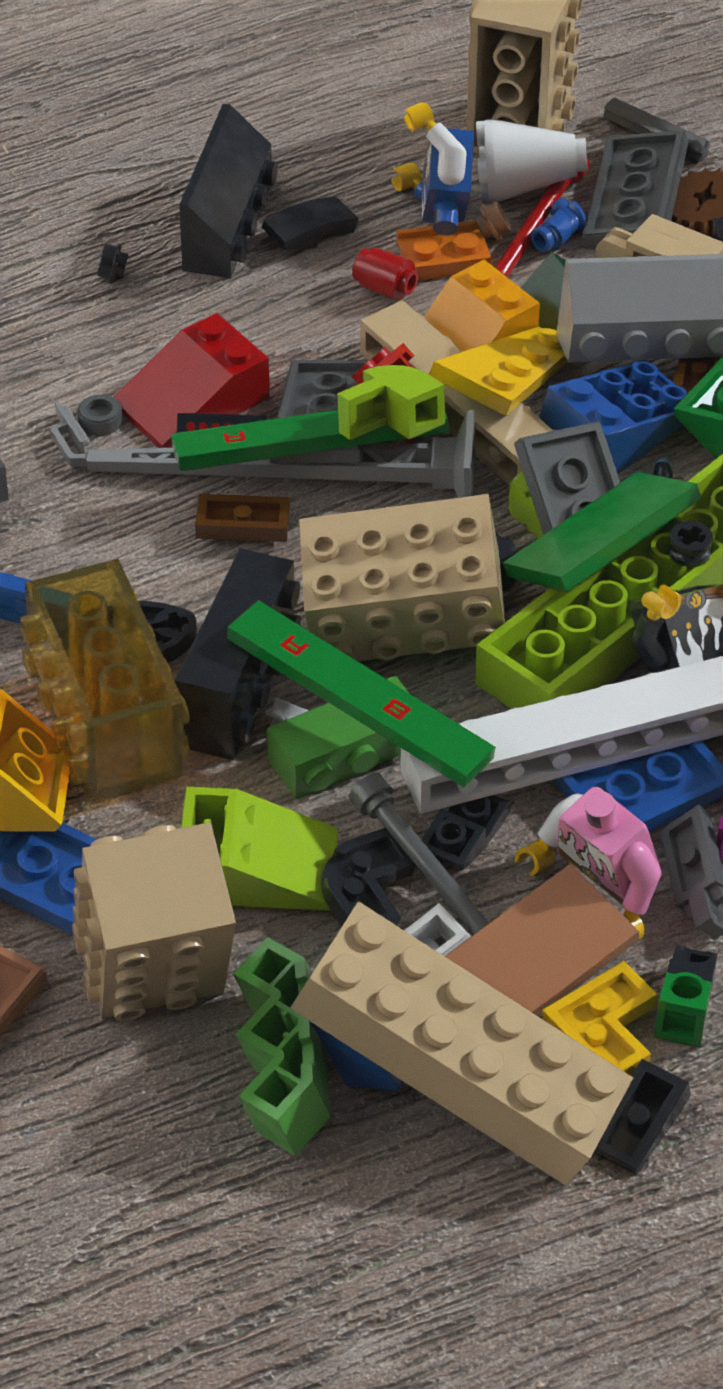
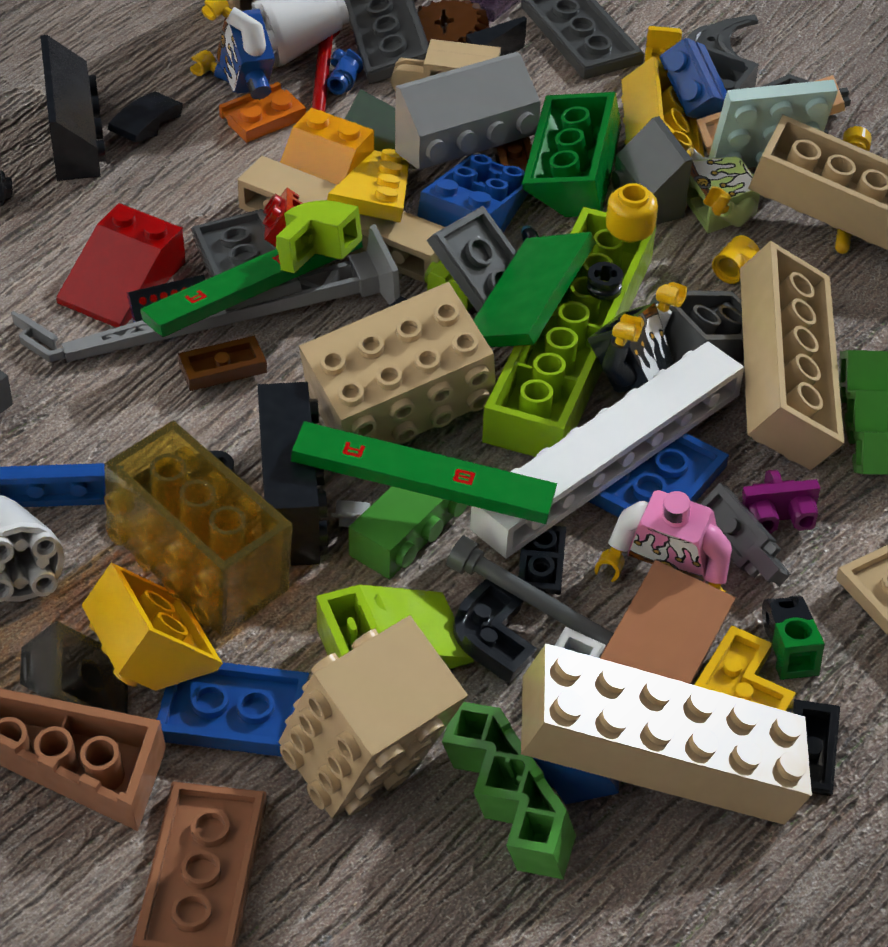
camera: 25 degrees left, 0 degrees up
(100, 415) = (53, 313): dark grey tile -> none
(385, 273) = (229, 140): red brick -> none
(493, 221) = (292, 79): medium nougat plate -> none

